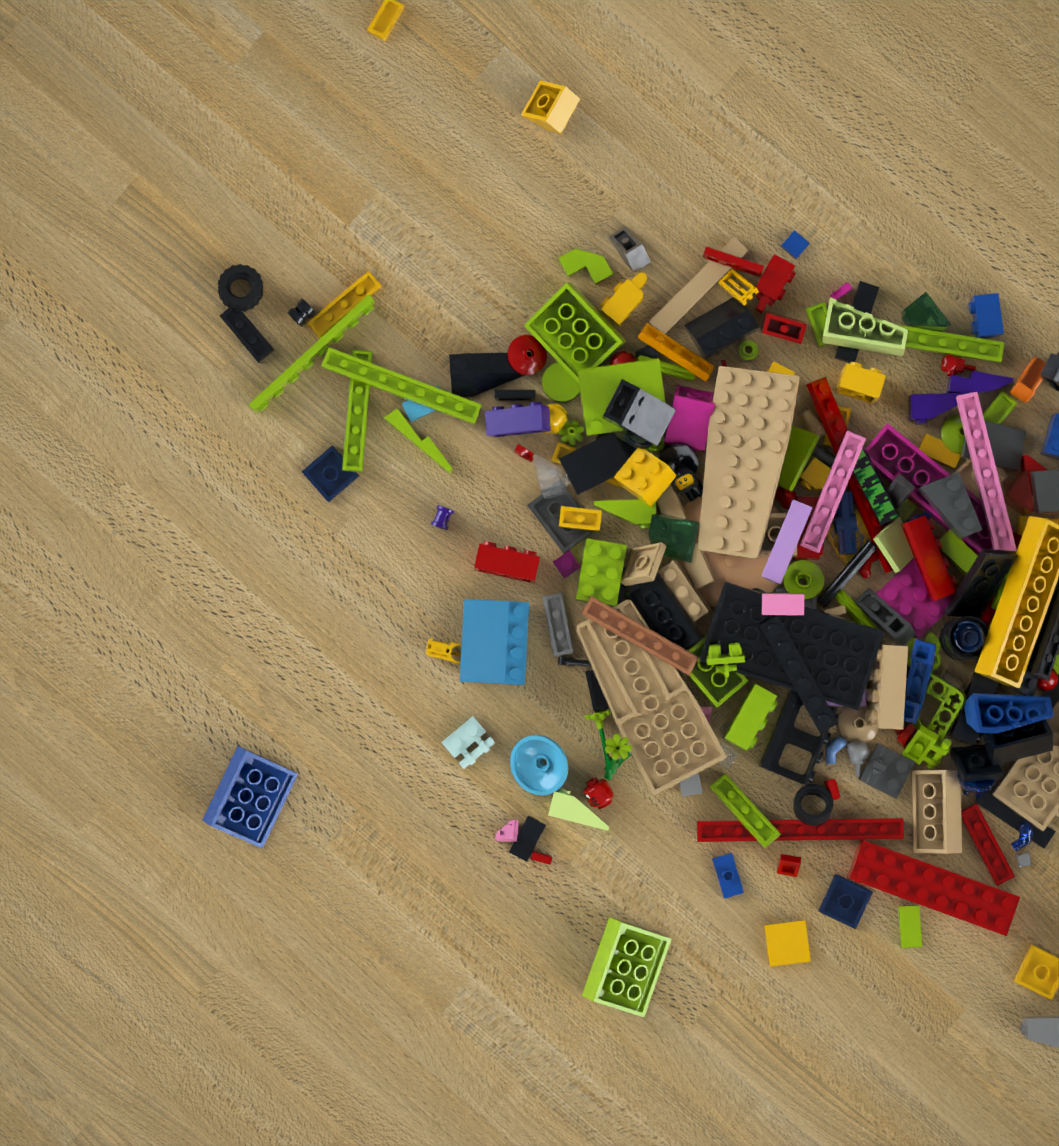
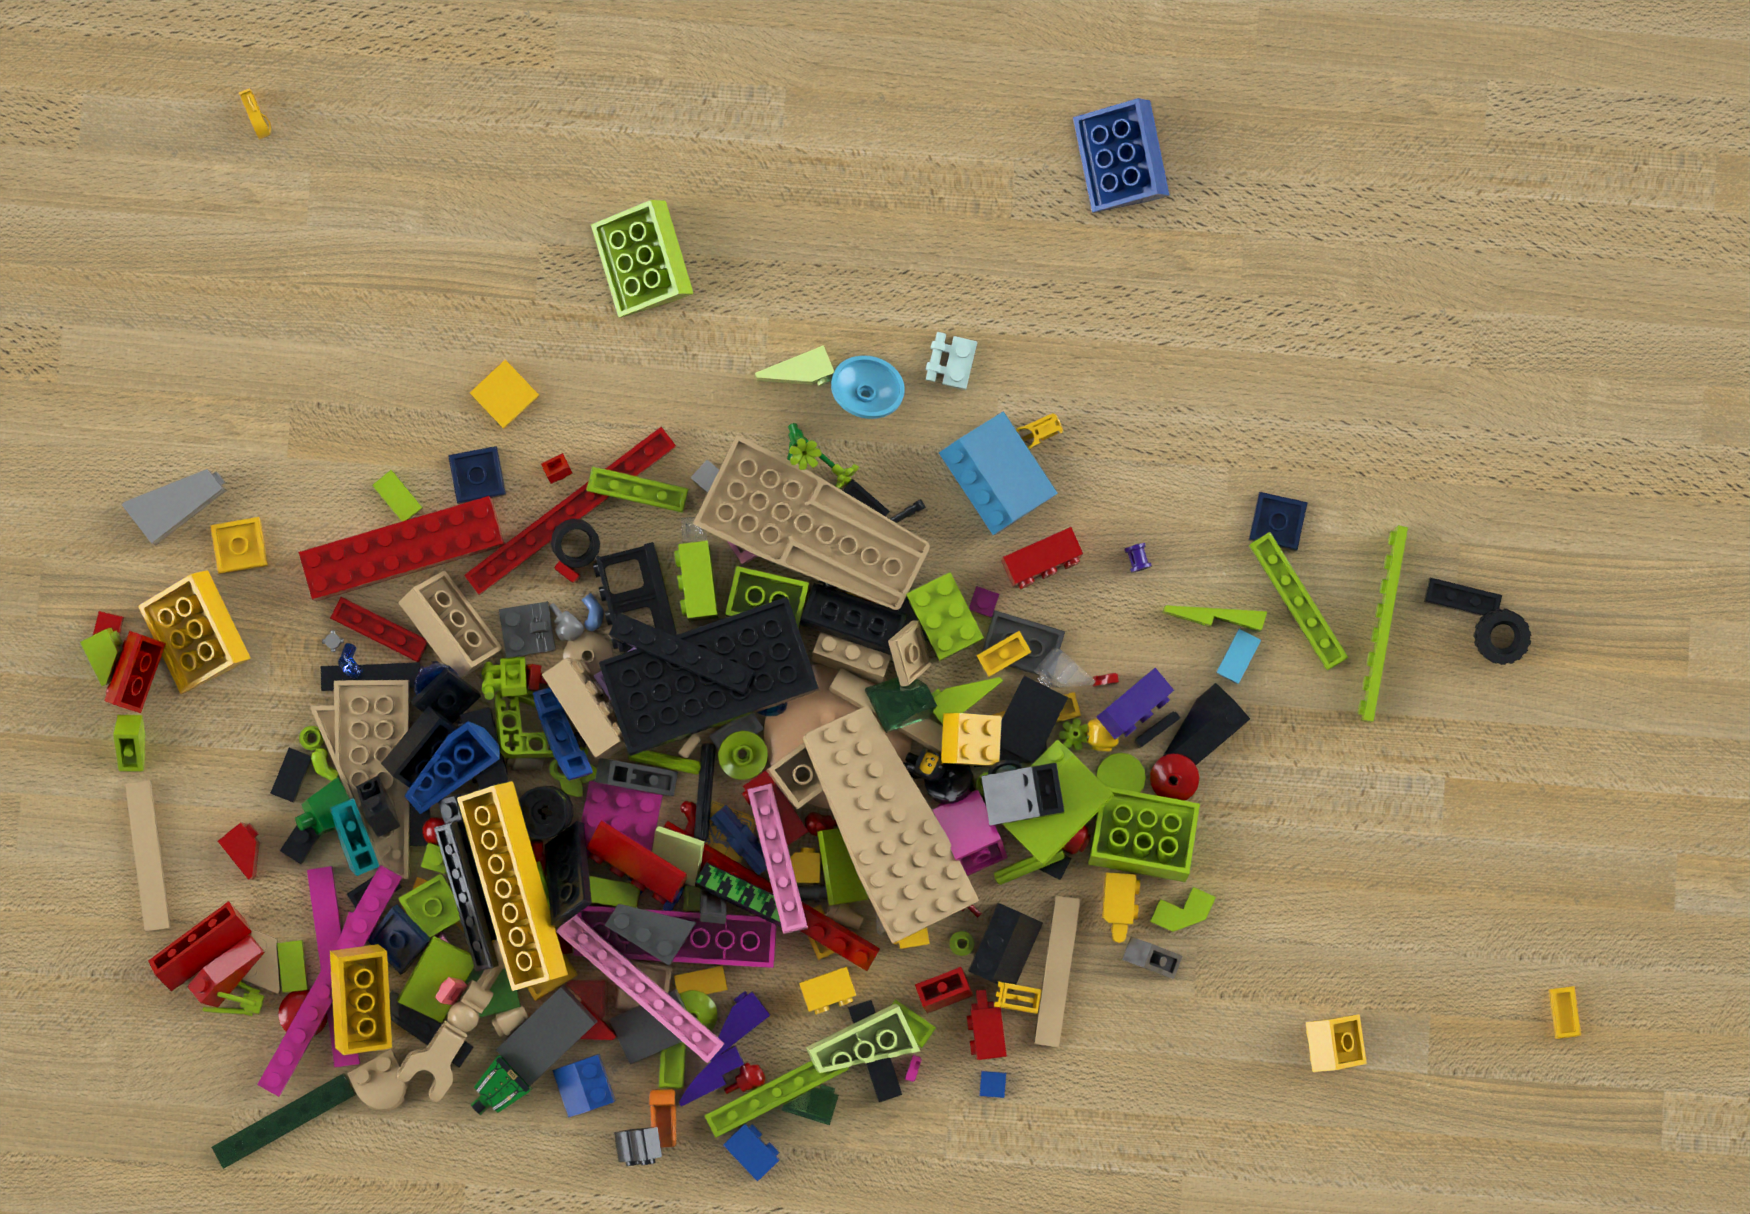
camera: 140 degrees right, 0 degrees up
(301, 312) = (1425, 656): black wheel -> none
(343, 304) = (1390, 696): yellow tile -> none
(401, 386) = (1273, 655): lime plate -> none
(508, 832) = (849, 303): bright pink tile -> none
(527, 838) = (826, 311): black tile -> none
(540, 857) = (799, 302): red tile -> none
(558, 624) = (948, 537): light grey tile -> none
(598, 793) = (790, 403): red head -> none
(640, 635) = (862, 580): nougat tile -> none
(676, 352) = (1031, 887): light orange tile -> none
(727, 875) = (608, 416): blue plate -> none
(733, 261) = (1041, 1018): red tile -> none
(735, 656) = (760, 614): lime hips -> none
(782, 604) = (746, 707): bright pink tile -> none
(786, 542) = (786, 772): lavender tile -> none
(969, 636) = (541, 813): dark blue hair -> none

